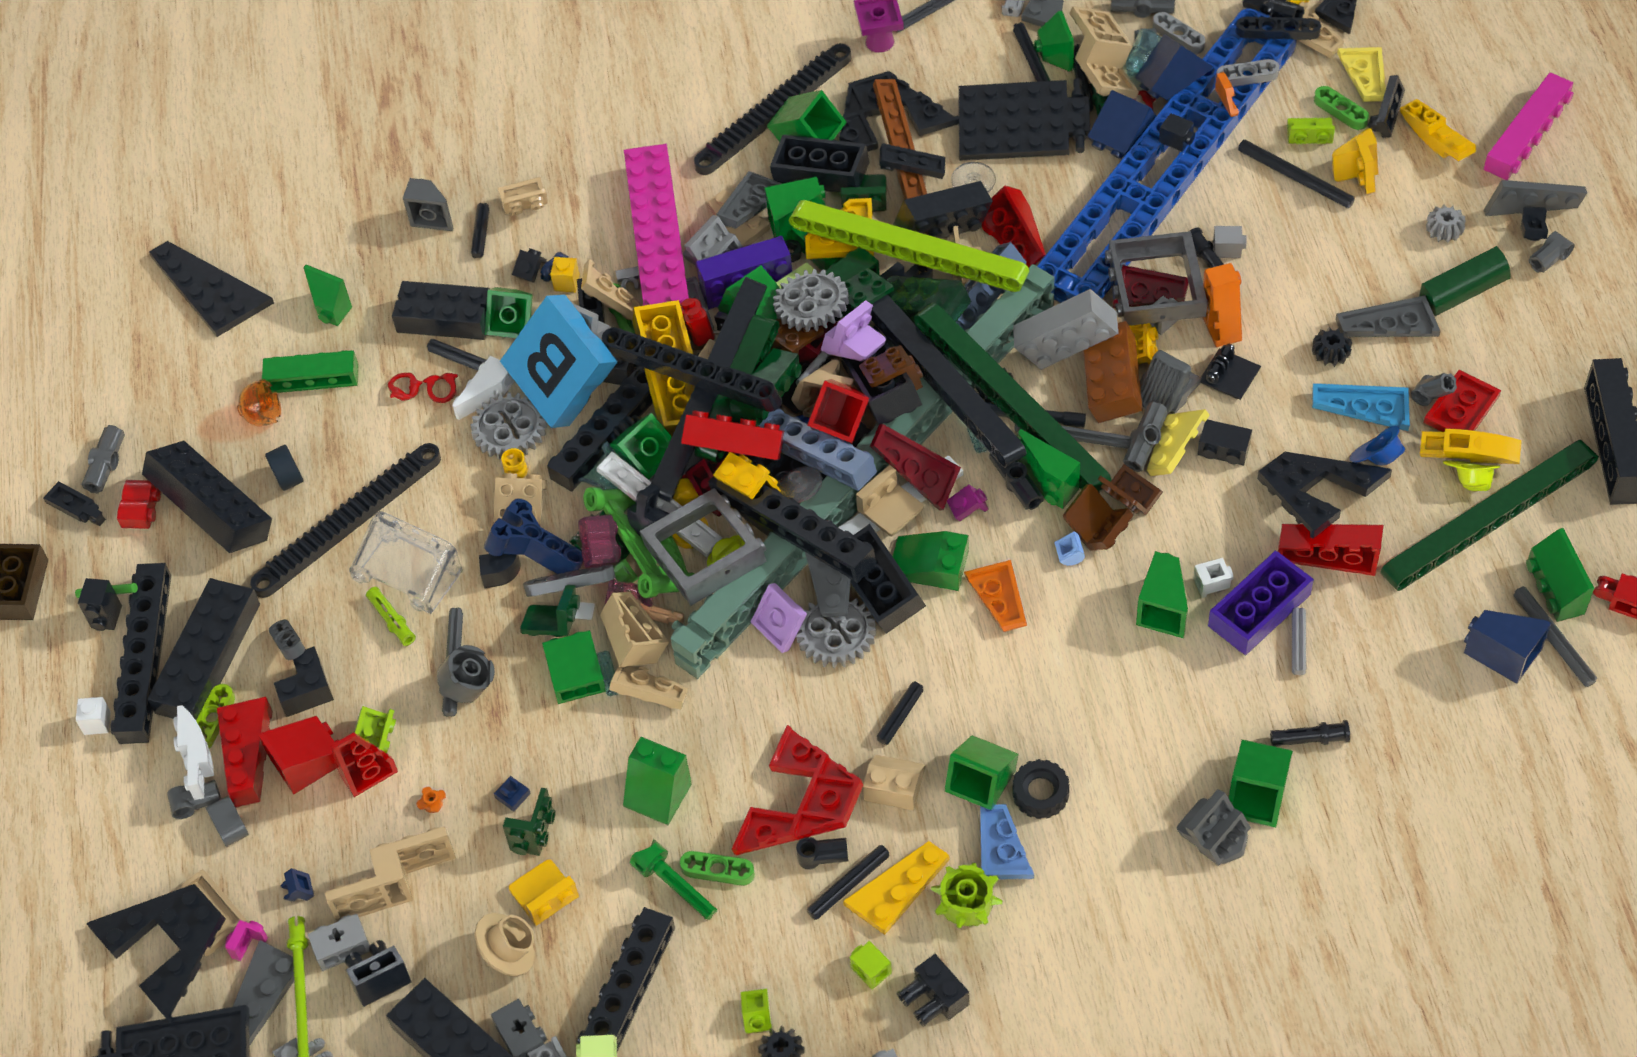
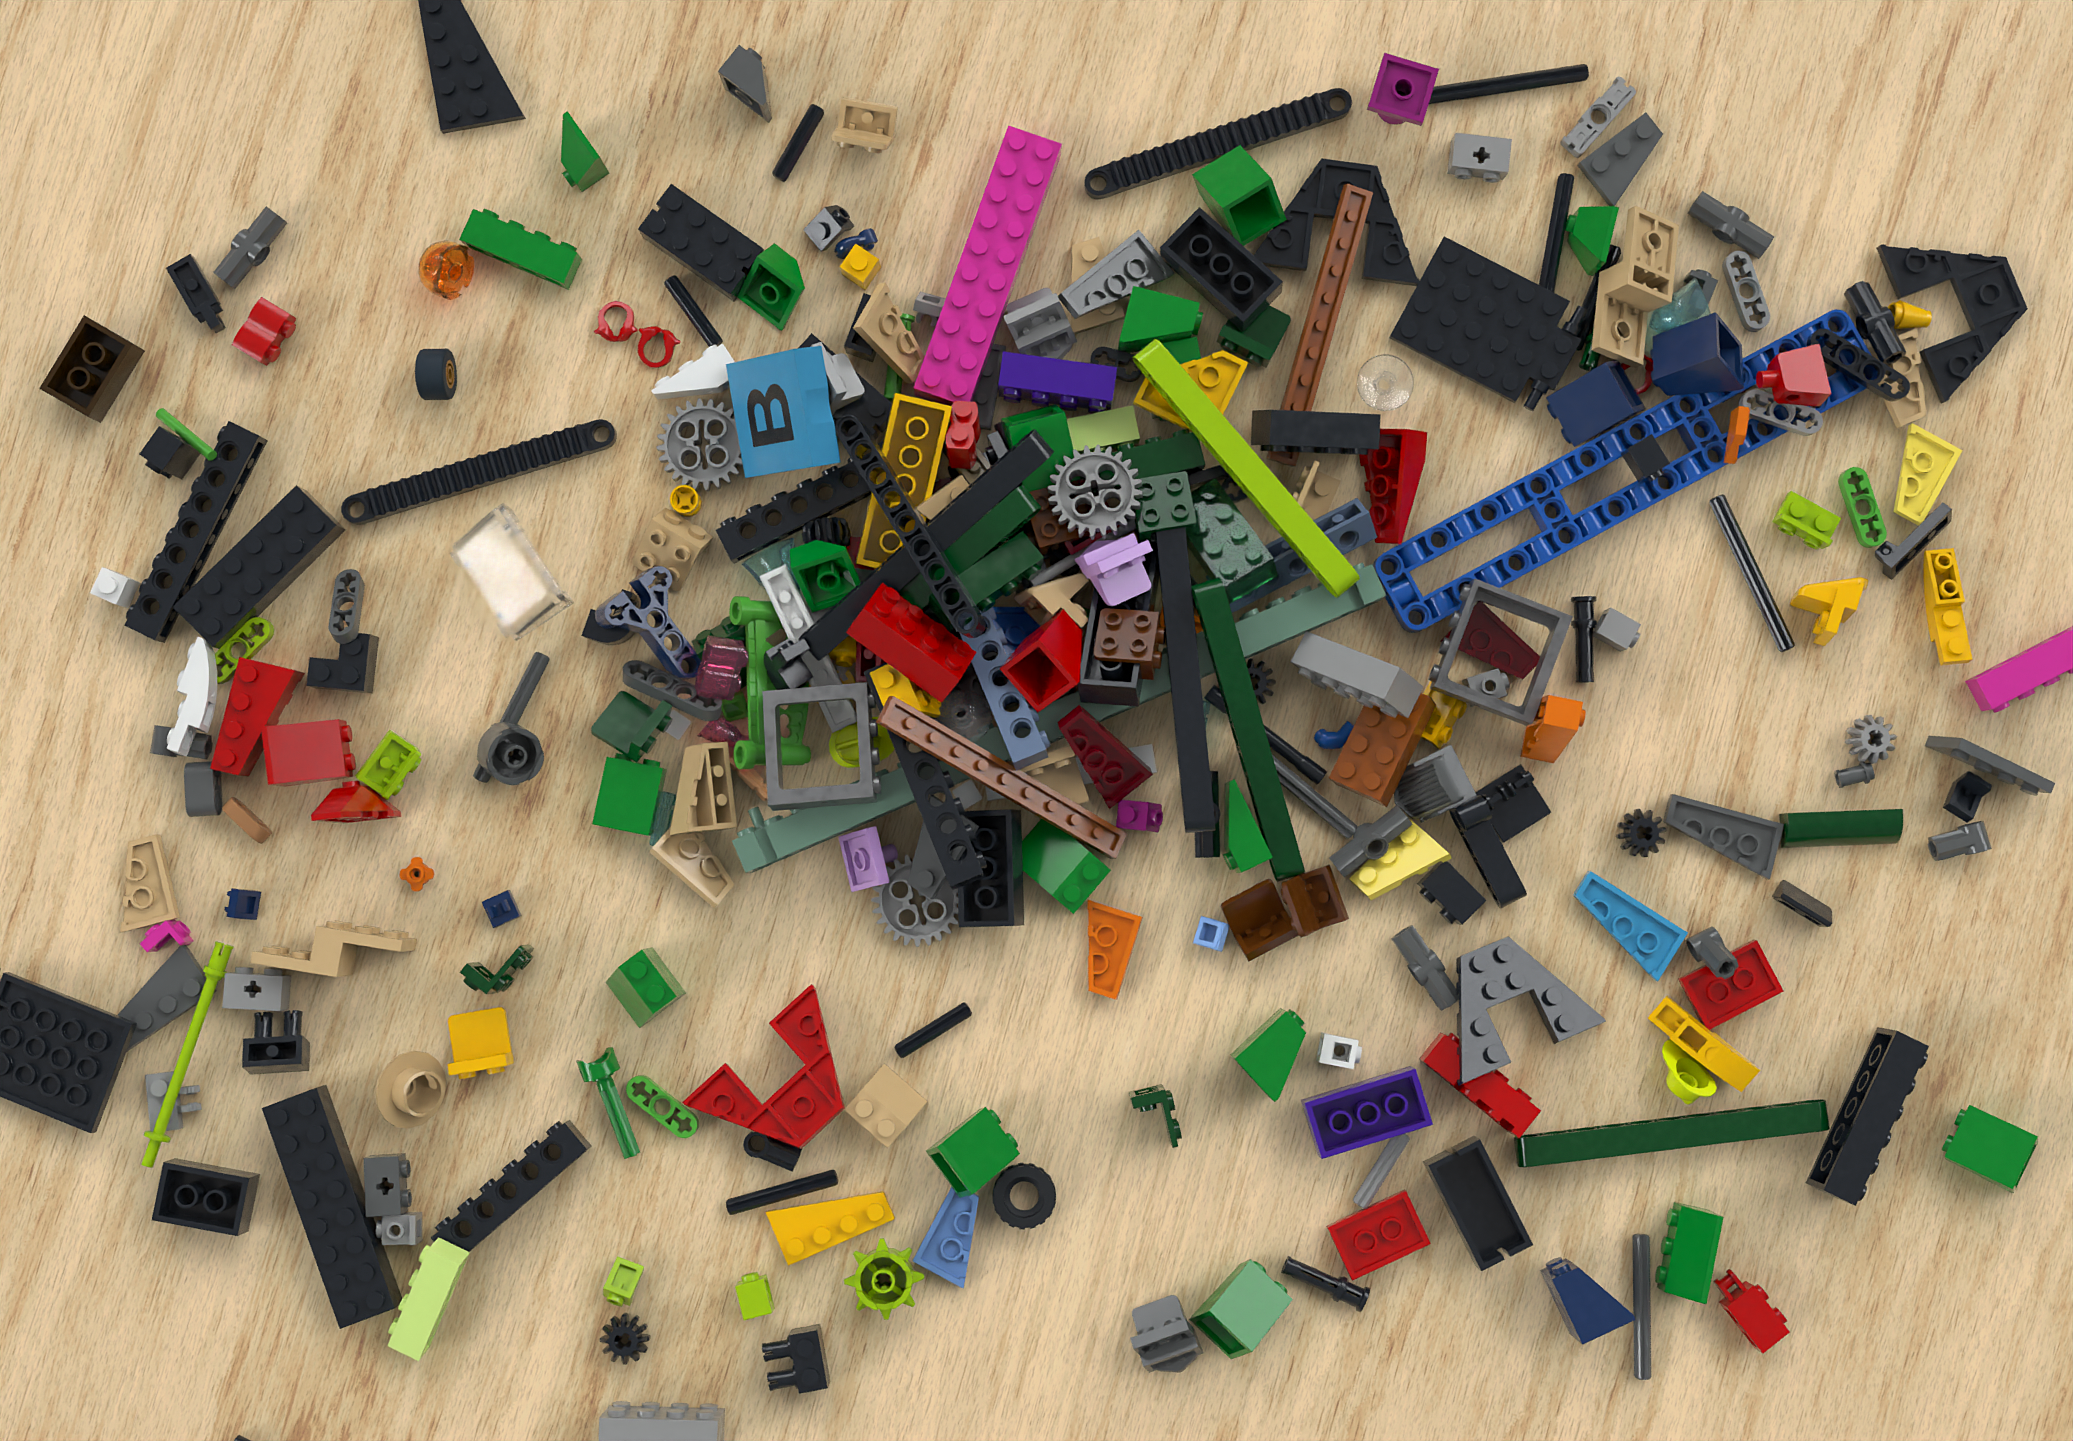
camera: 20 degrees right, 30 degrees up
(189, 922) = (115, 896): black wing -> none
(206, 496) = (336, 369): black brick -> none
(273, 825) = (246, 820): none -> medium nougat beam
(404, 633) = (471, 626): lime pin -> none
(847, 500) = (1001, 777): none -> plate
(912, 161) = (1326, 327): black hinge -> none
(953, 38) = (1492, 151): none -> light grey brick
(1077, 393) = (1333, 740): none -> blue arm
(1103, 664) = (1146, 1100): none -> dark green bracket
(1228, 404) = (1487, 850): none -> black beam
(1240, 496) = (1426, 967): none -> dark grey piece
(1243, 45) = (1797, 377): none -> torso
(1327, 683) = (1378, 1234): none -> red plate
(1381, 449) = (1607, 989): blue piece -> none
(1384, 620) = (1478, 1203): none -> black piece
(1455, 245) = (1854, 775): none -> dark grey pin
(1475, 338) = (1803, 904): none -> black slope

